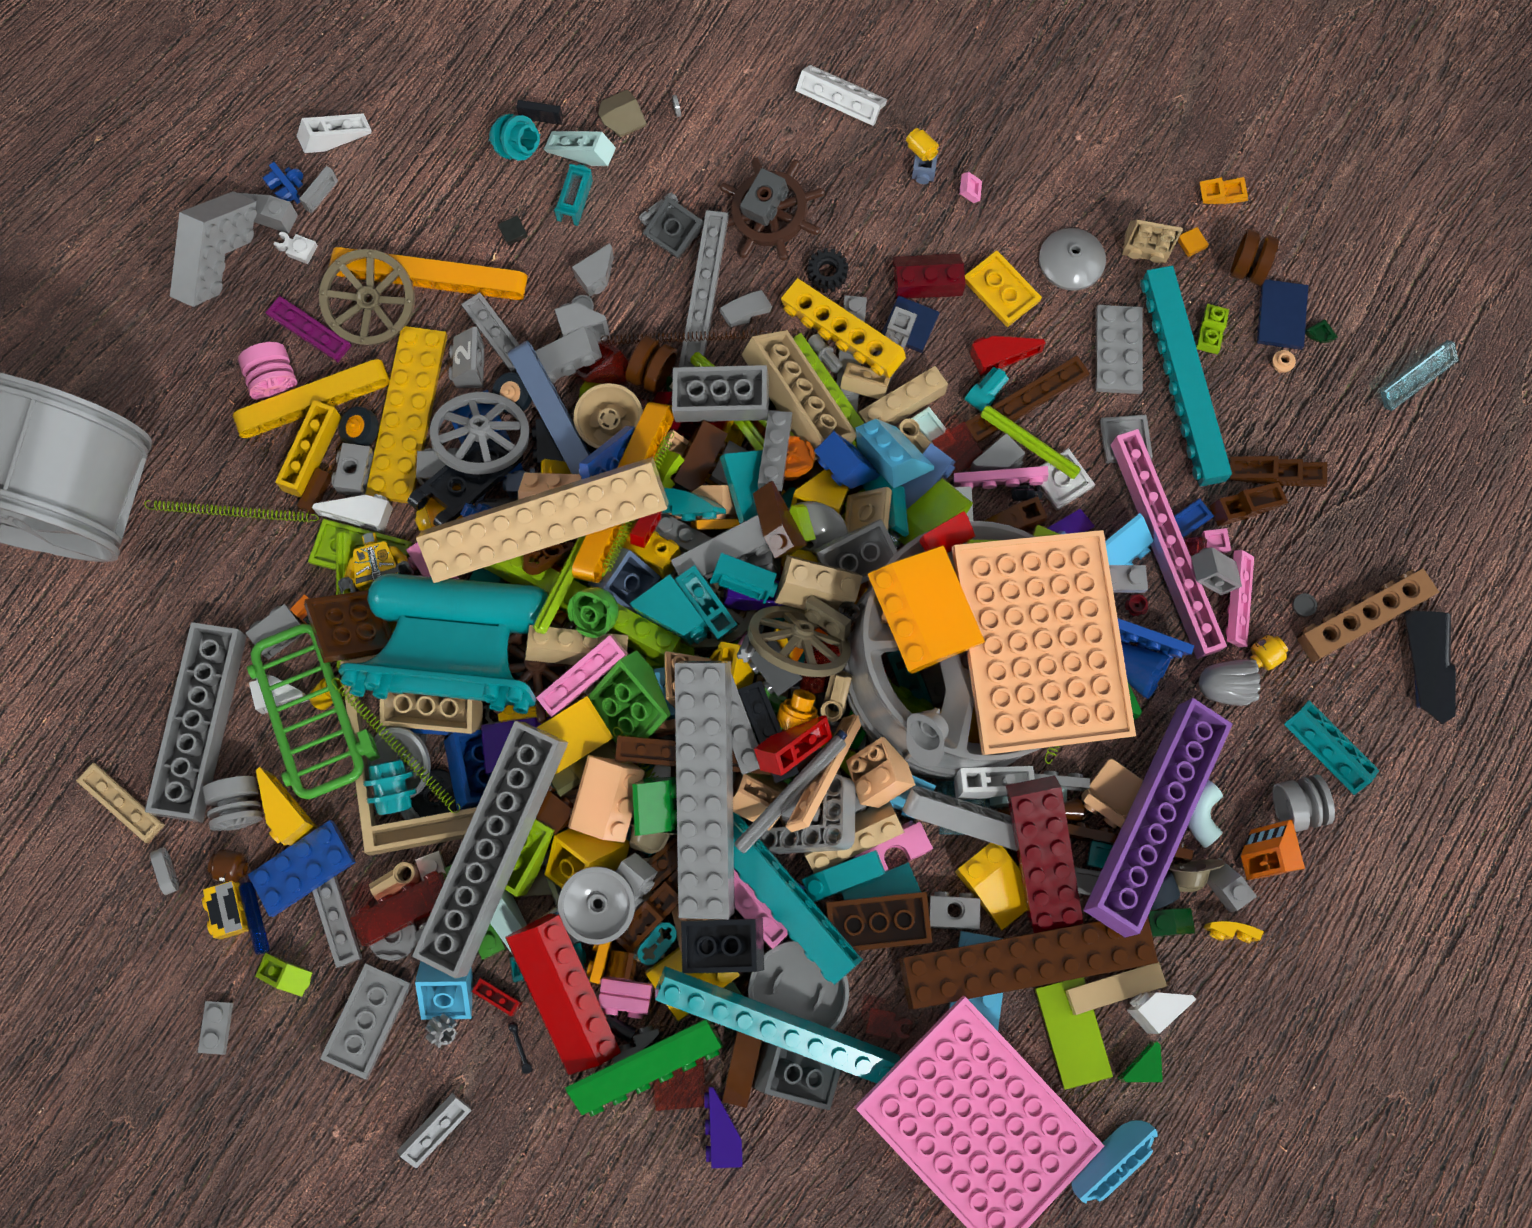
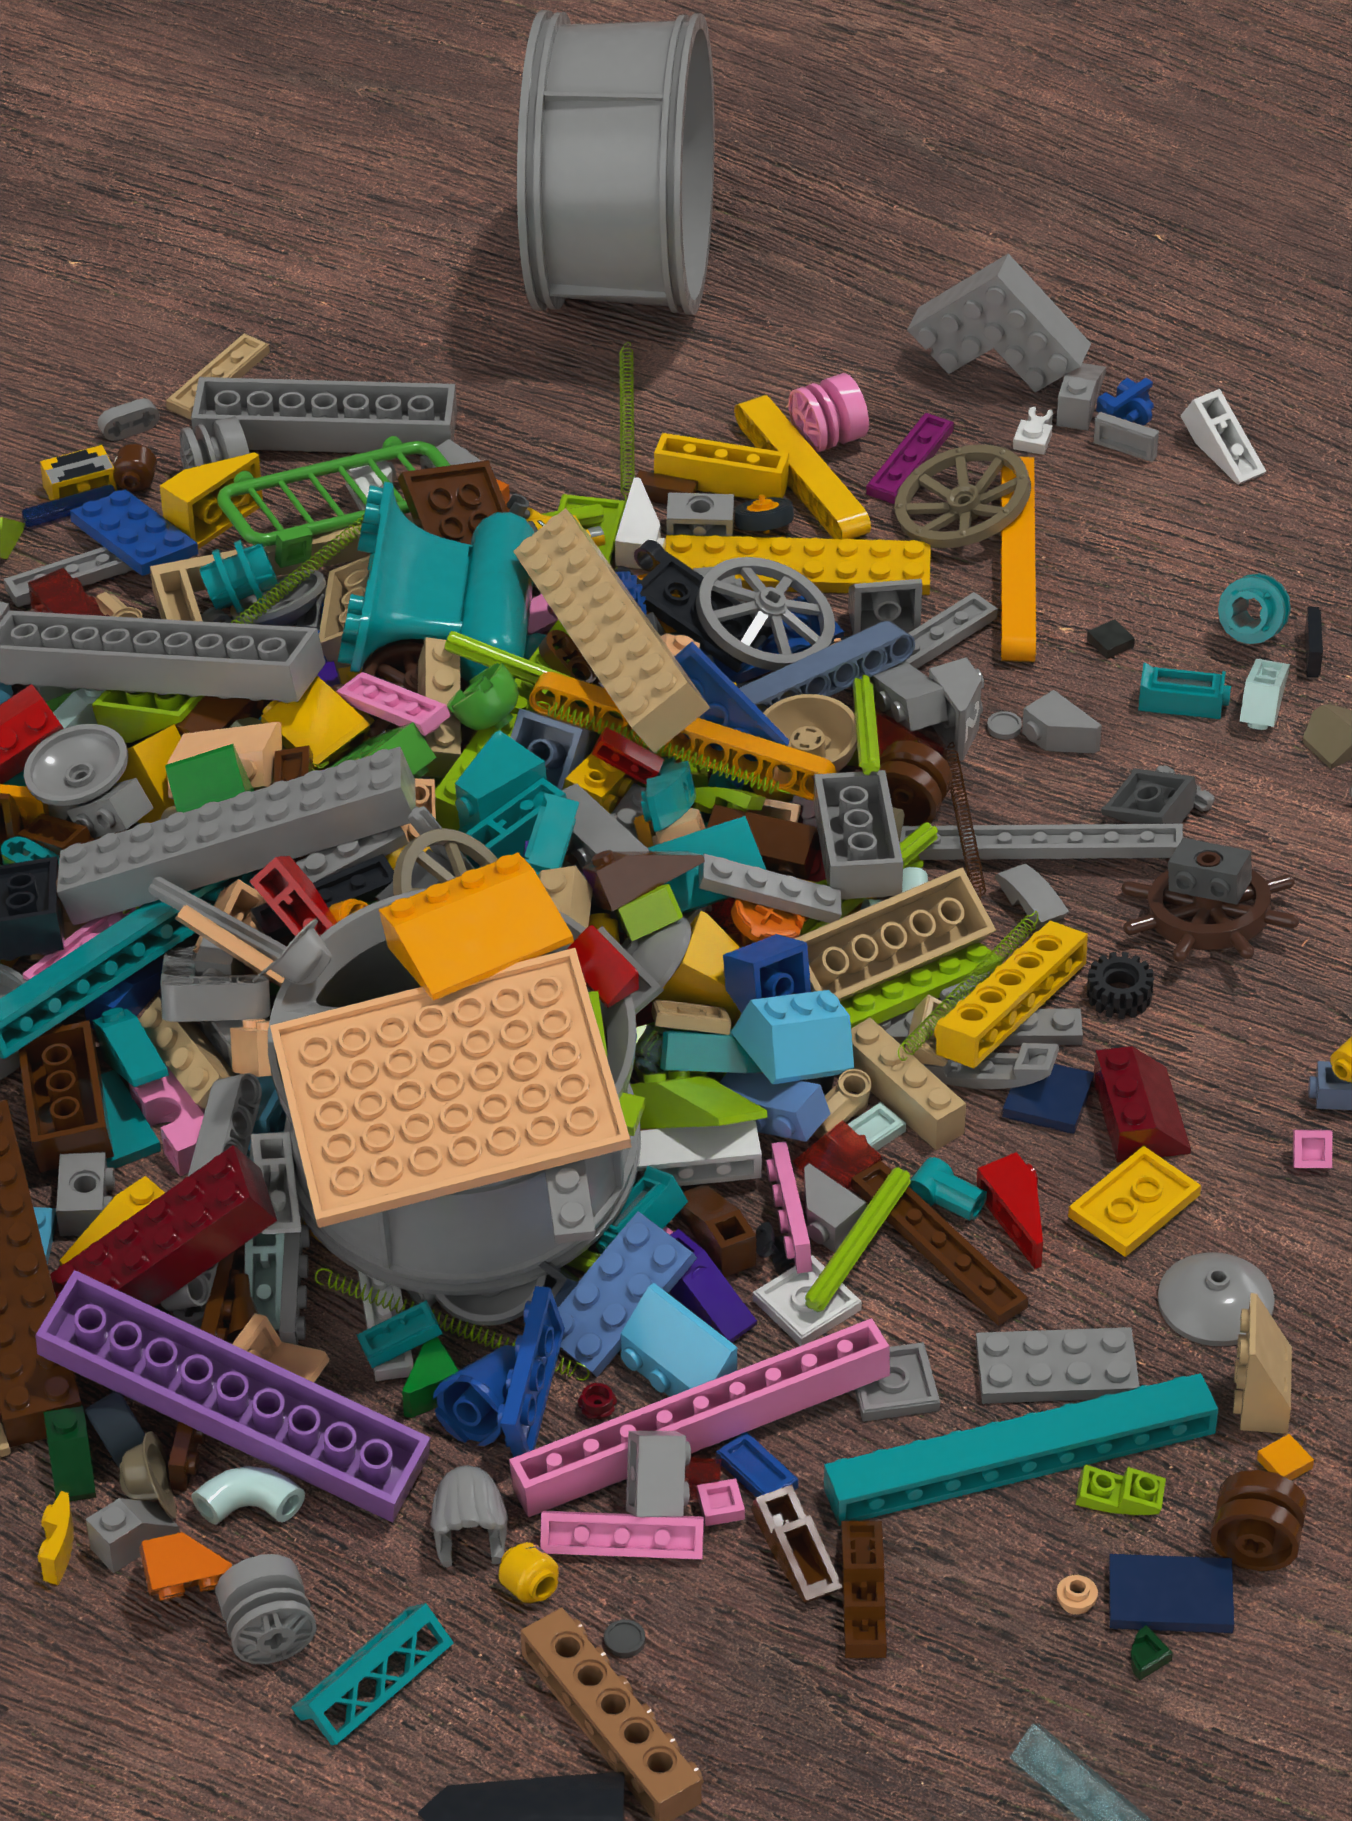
camera: 85 degrees right, 30 degrees down
(616, 377) = (866, 725): none -> lime axle
(834, 350) = (971, 974): none -> lime piece

